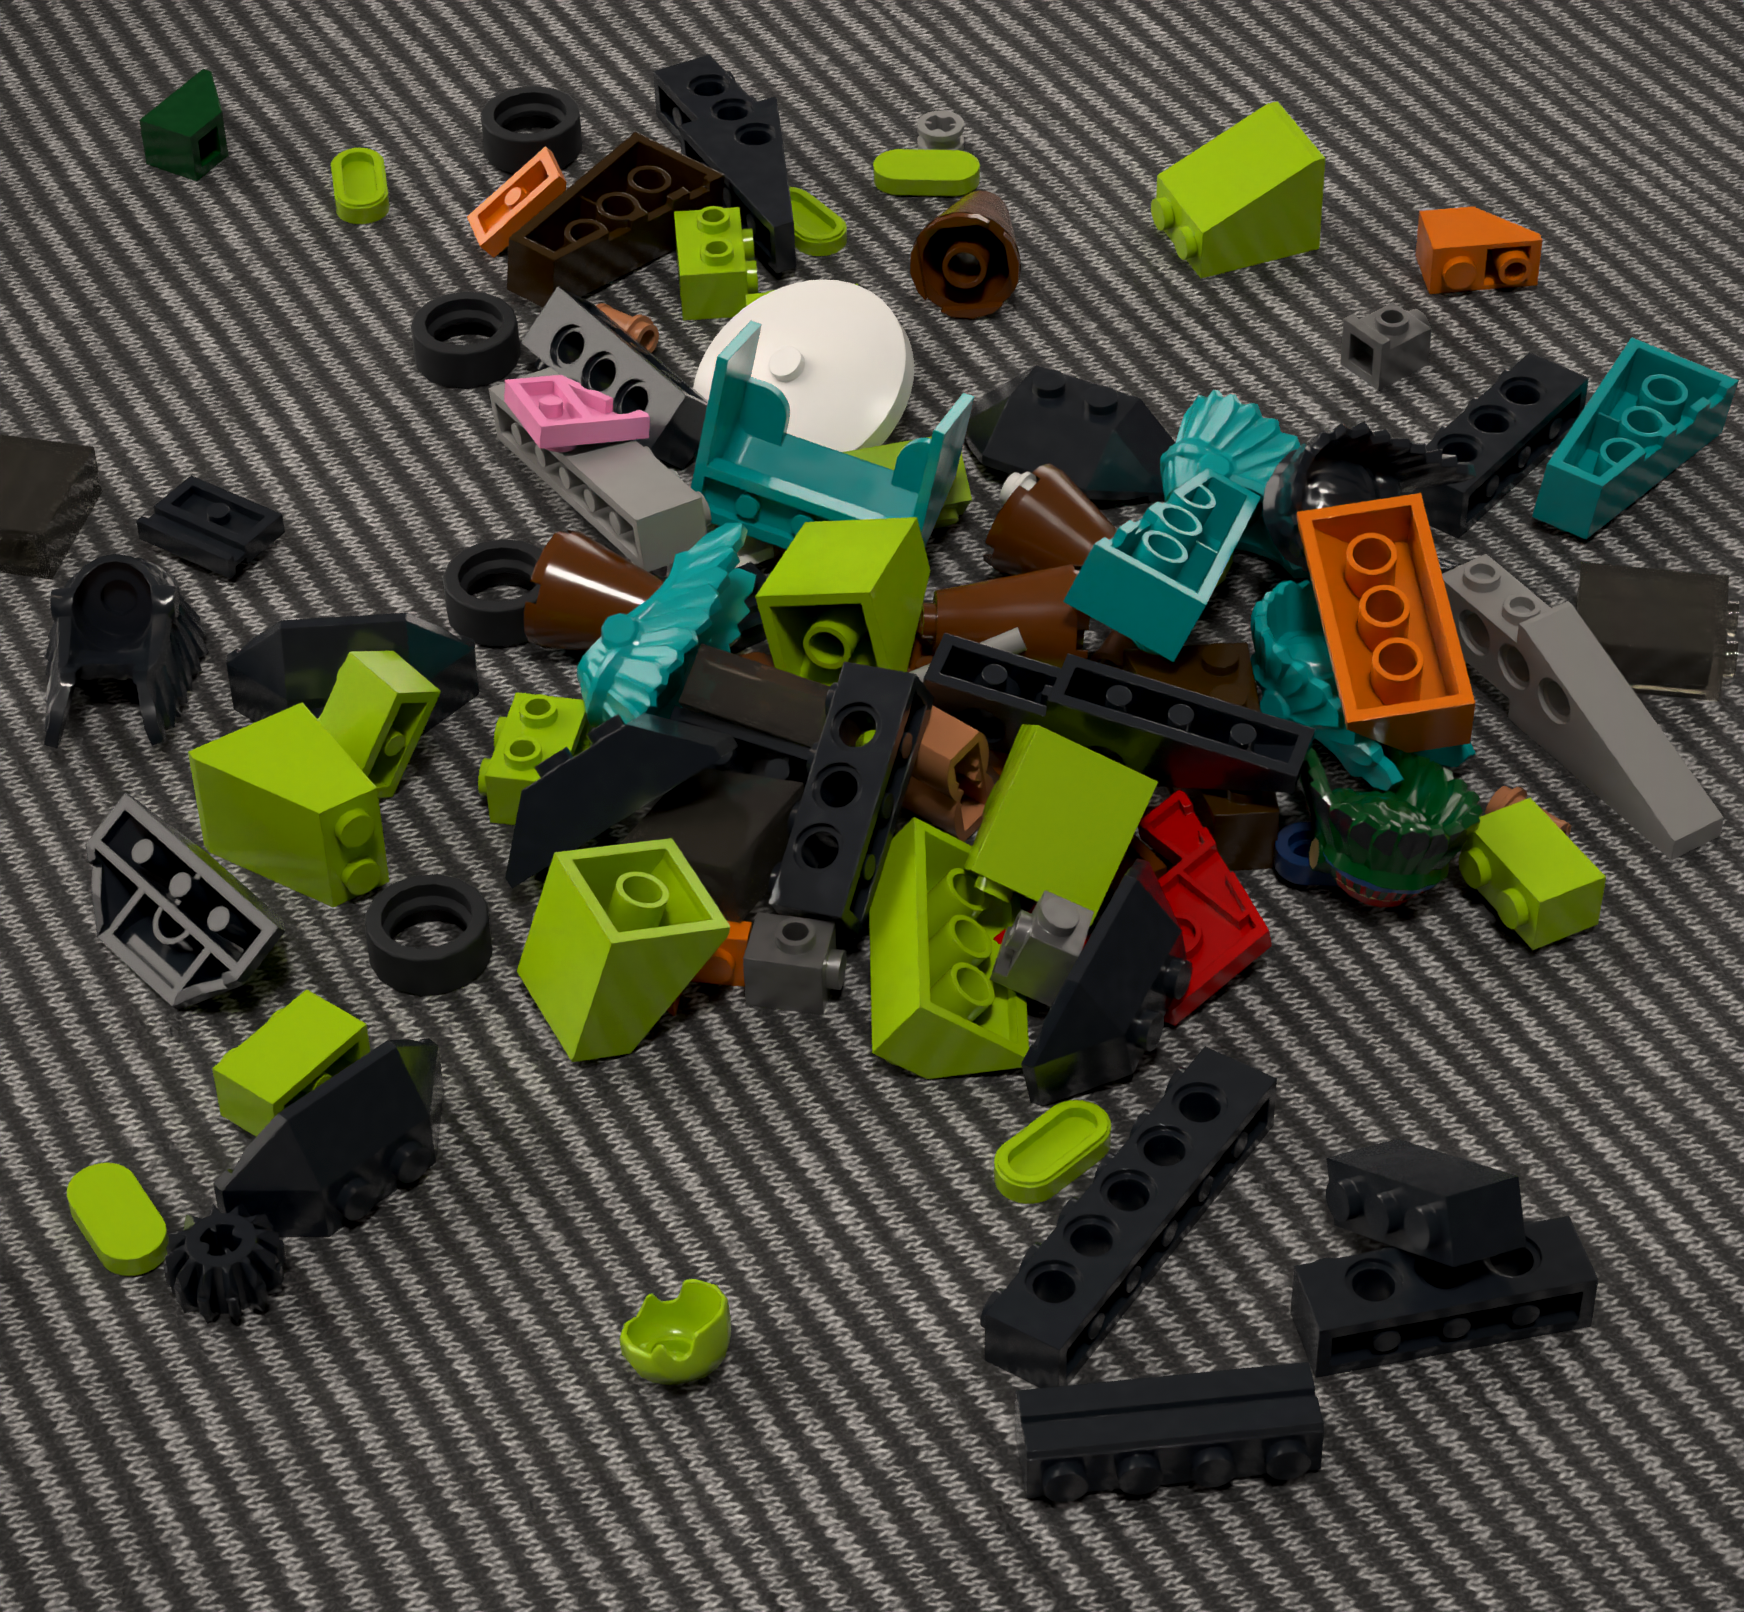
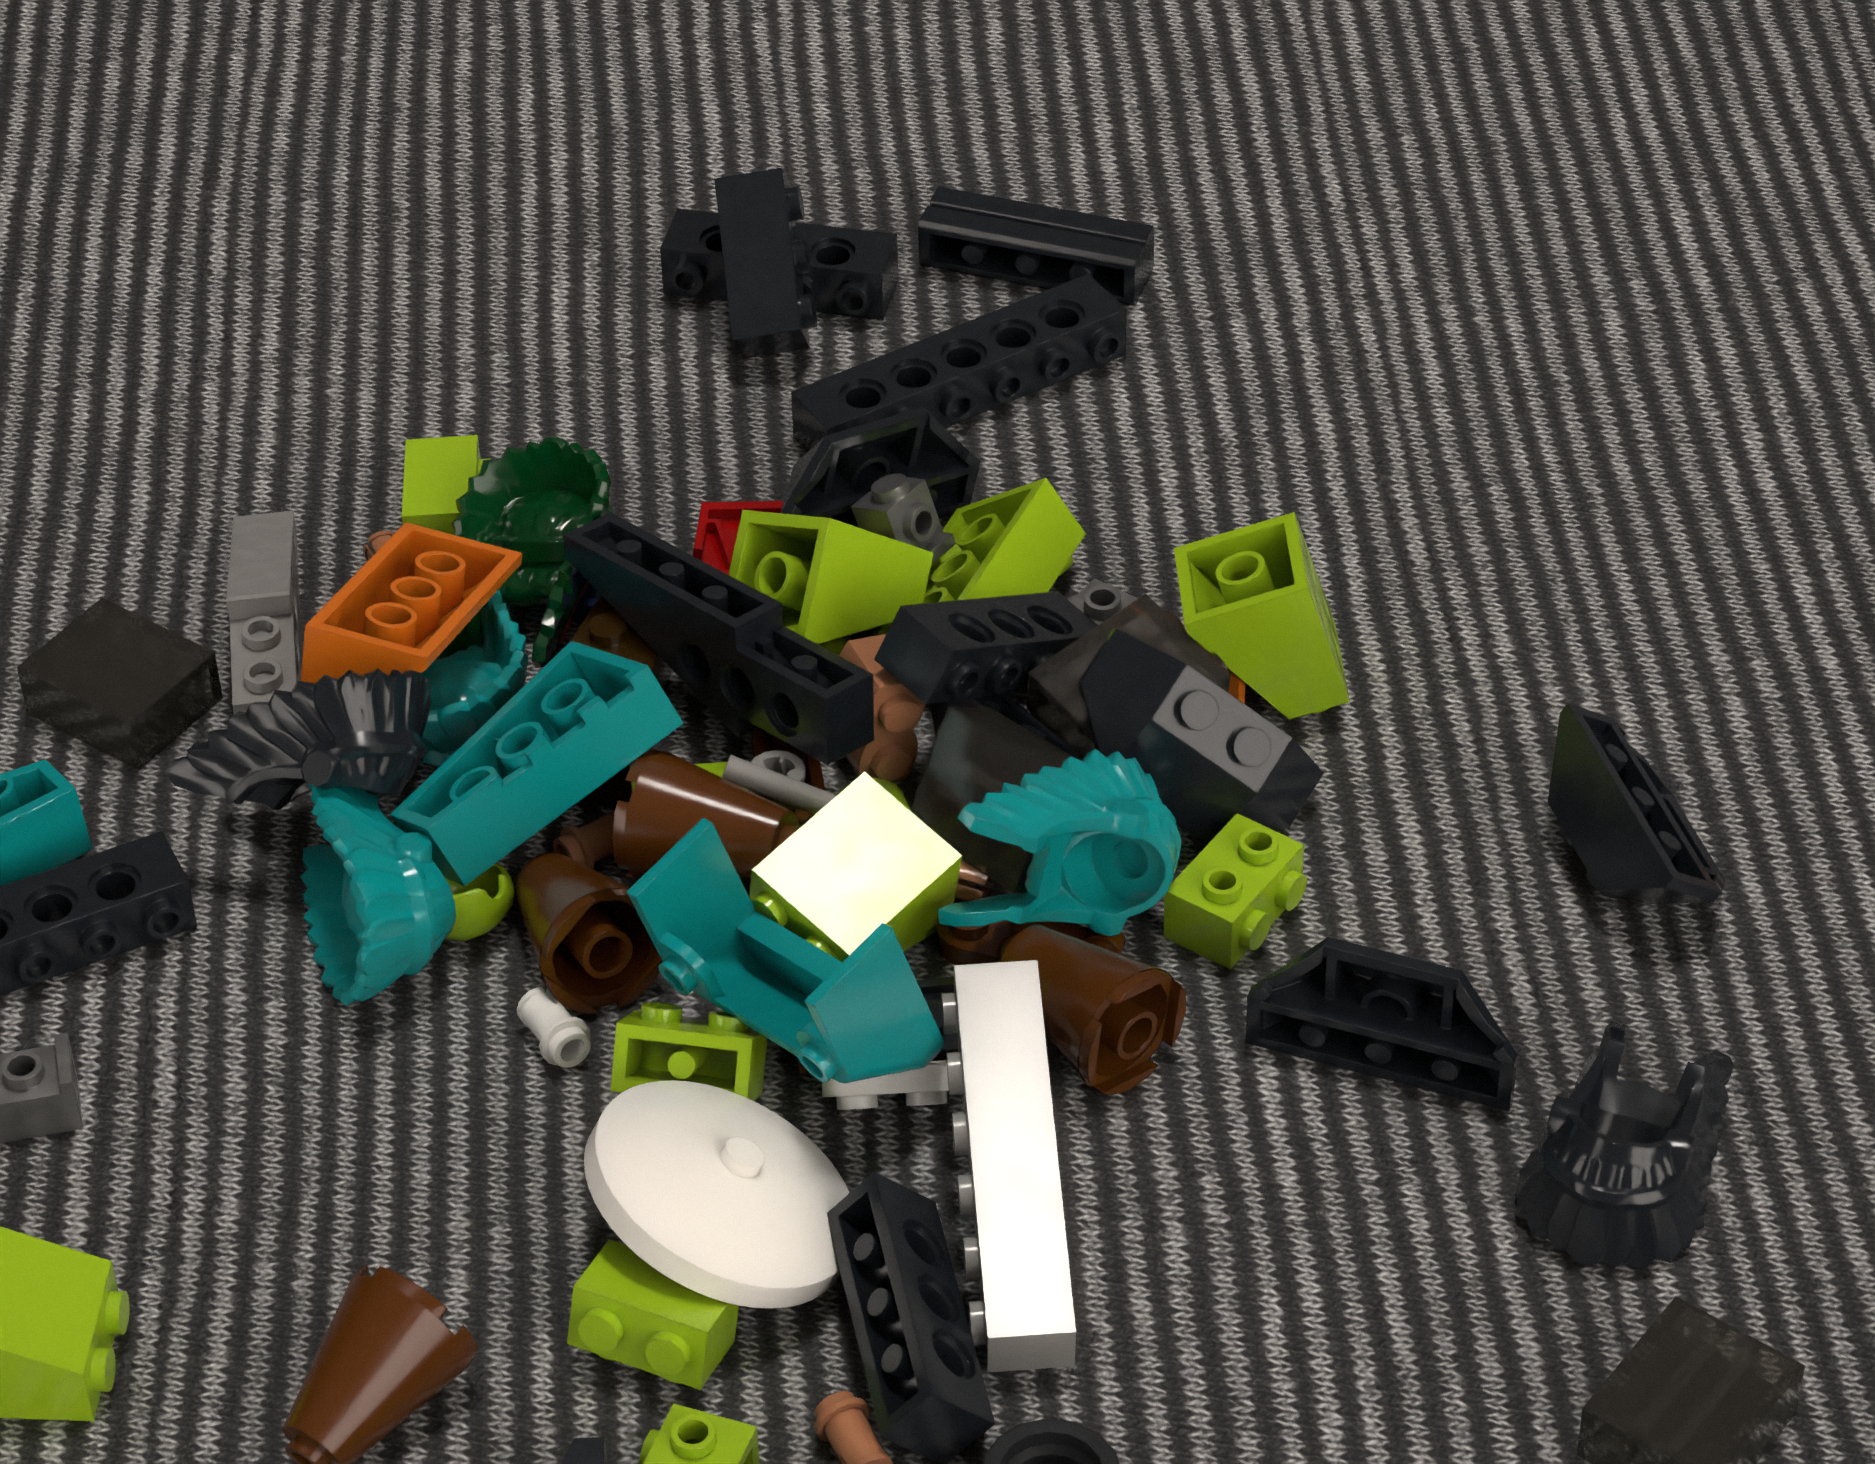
camera: 155 degrees left, 0 degrees up
(117, 1219) = (1770, 626): lime tile -> none
(211, 526) = (1468, 1310): black plate -> none
(225, 1263) = (1691, 544): black gear -> none
(287, 1060) = (1585, 657): lime brick -> none
(291, 807) = (1507, 871): lime slope -> none
(343, 1143) = (1567, 586): black wedge -> none
(379, 714) = (1390, 909): lime brick -> none
(433, 968) = (1413, 798): black tyre -> none
(485, 566) = (1171, 1141): black tyre -> none
(565, 414) = (1028, 1157): bright pink wing -> none
(679, 1337) = (1355, 388): lime hair -> none
(1052, 1151) = (1002, 450): lime tile -> none
(1086, 429) = (480, 1093): black wedge -> none

